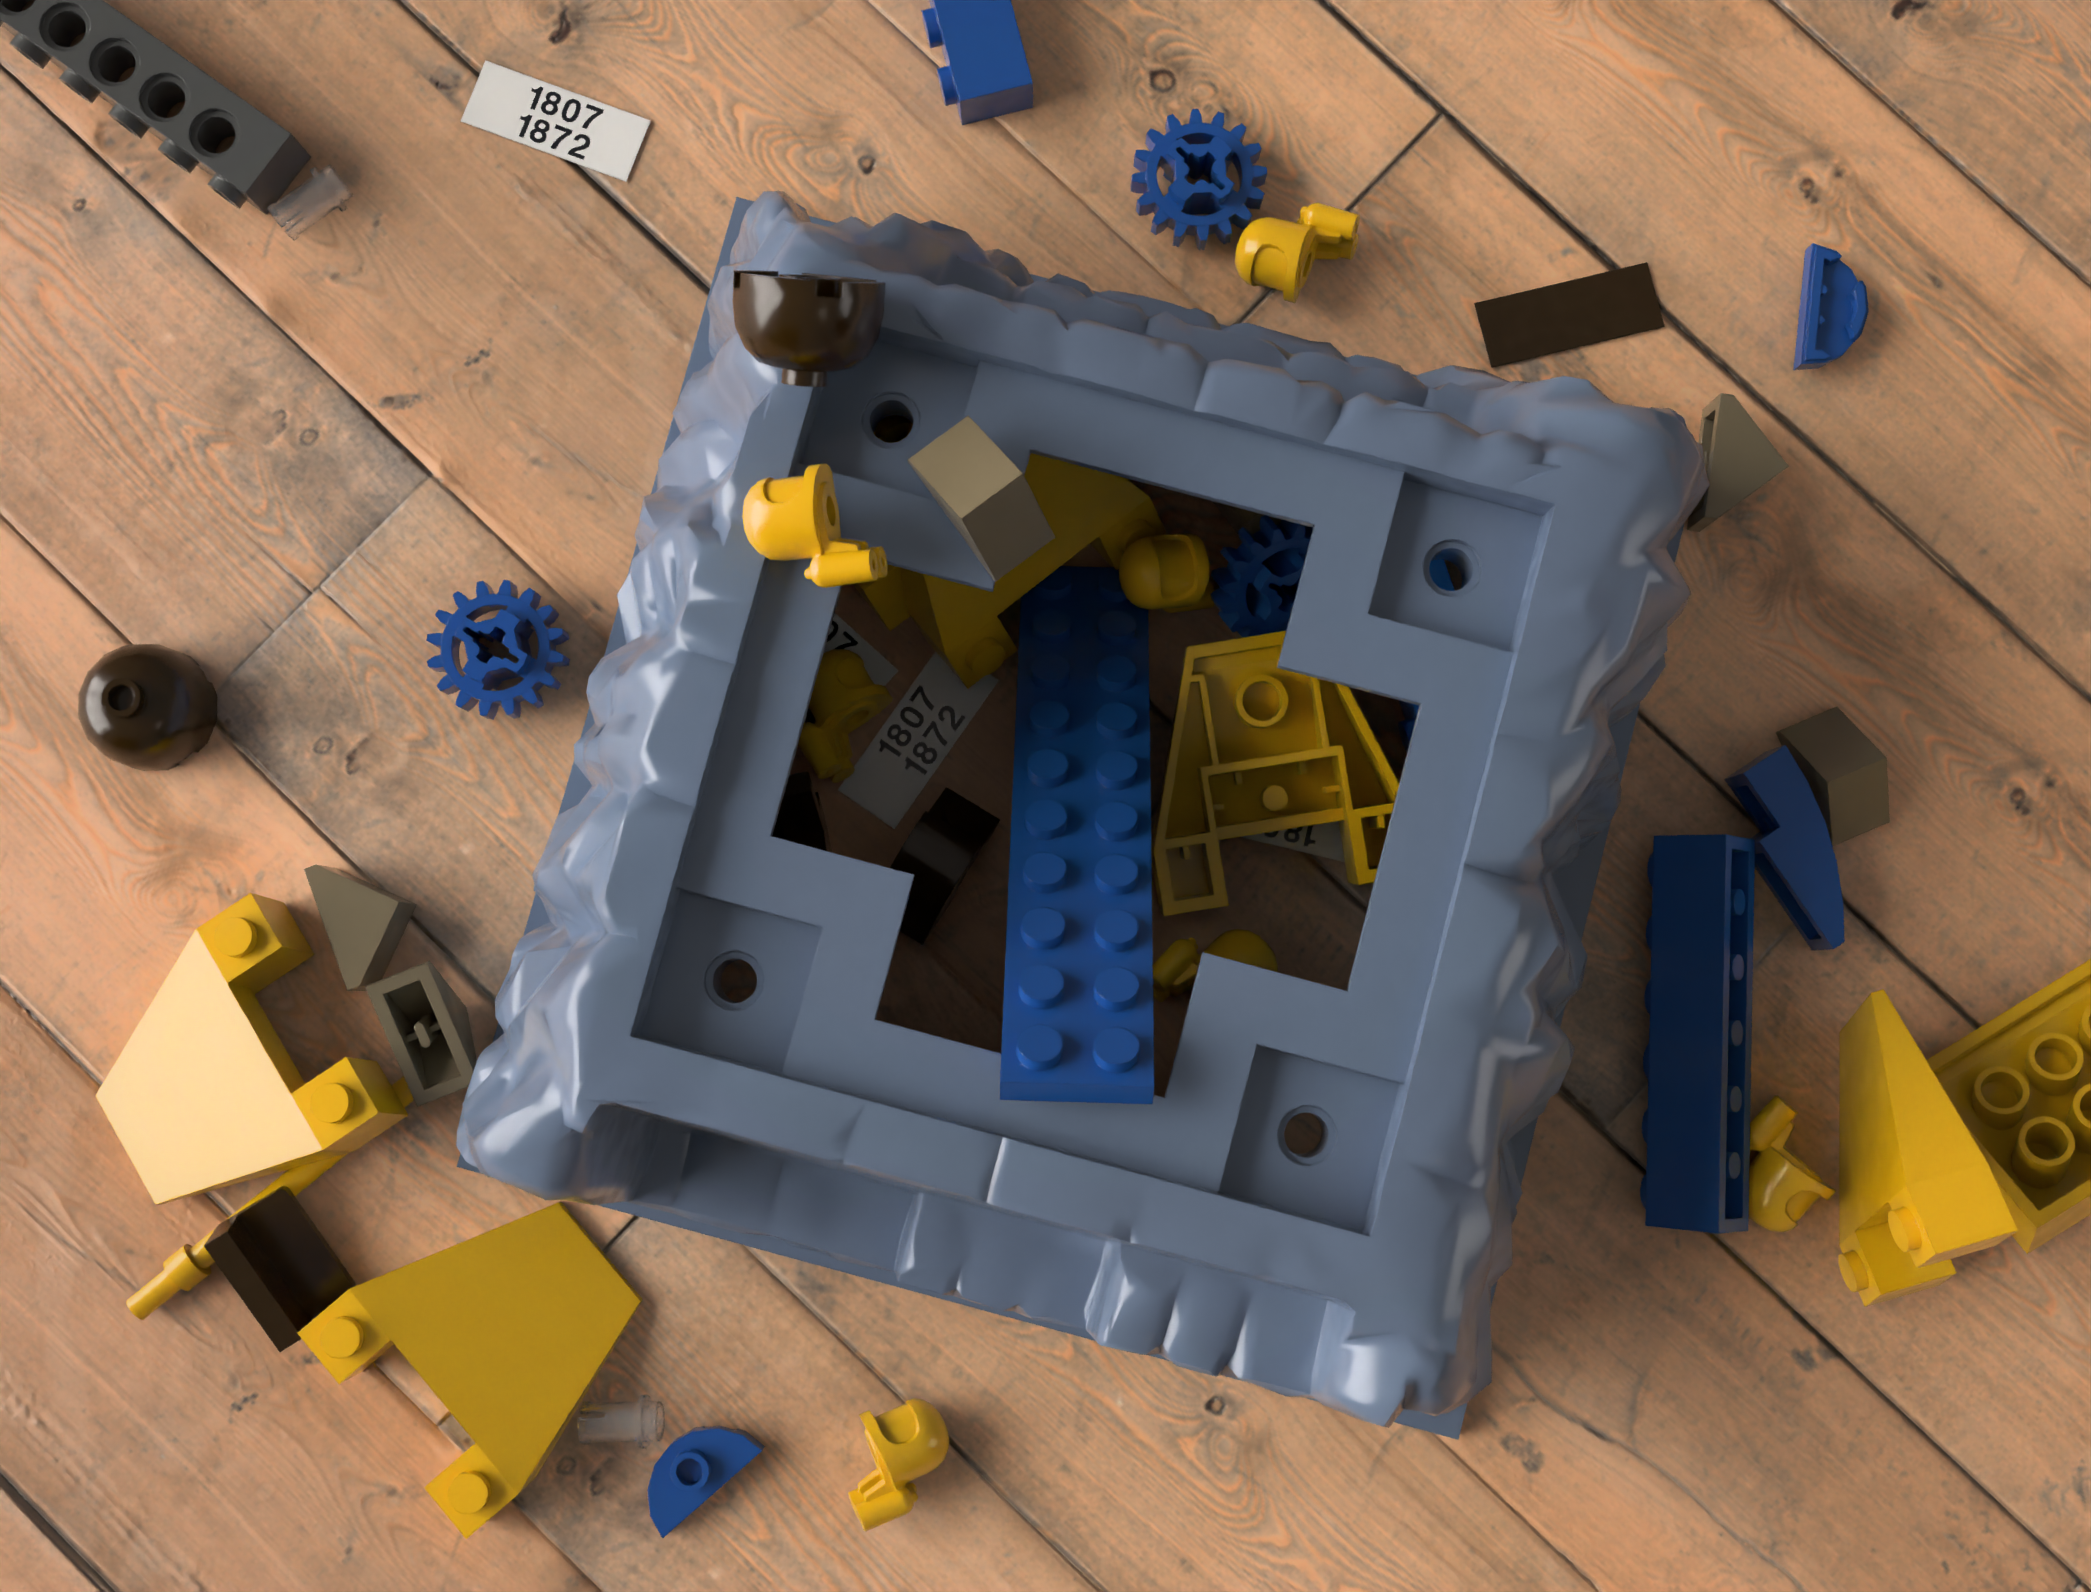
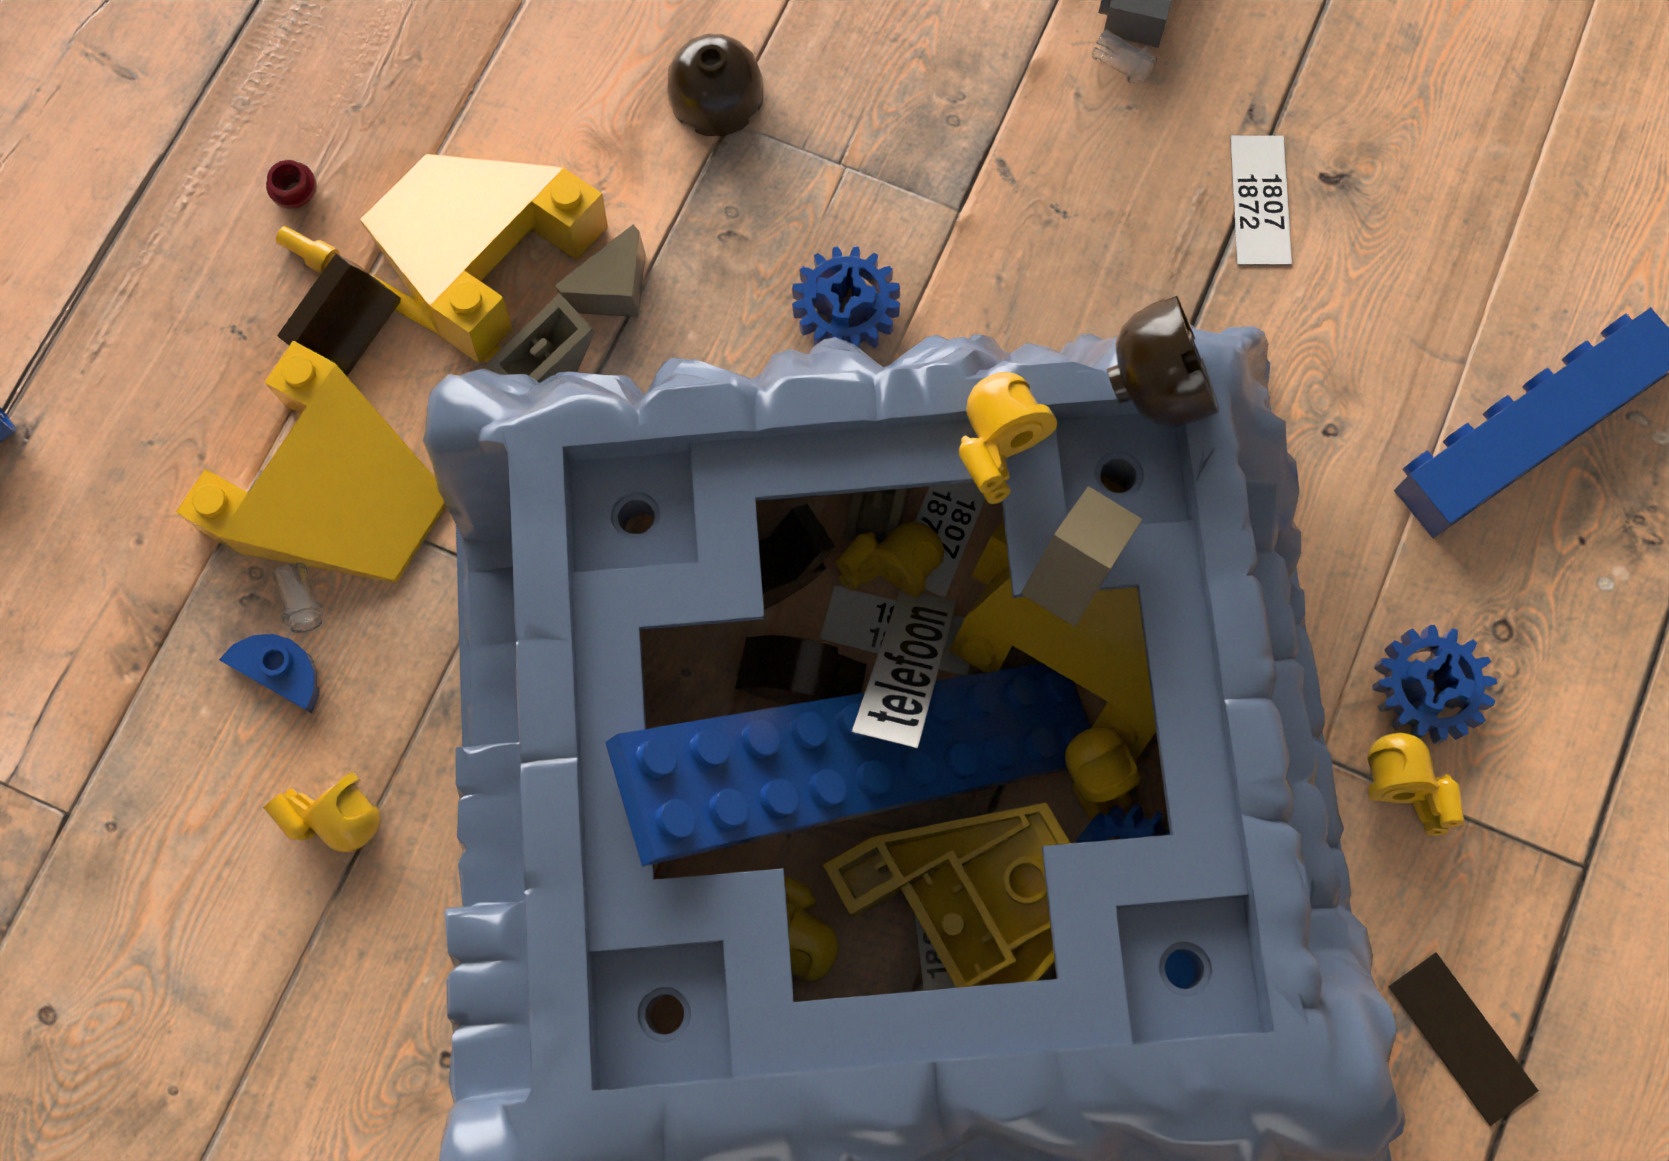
camera: 75 degrees right, 10 degrees down
(51, 1280) = (286, 173): none -> dark red plate
(992, 742) = (905, 670): none -> white sticker

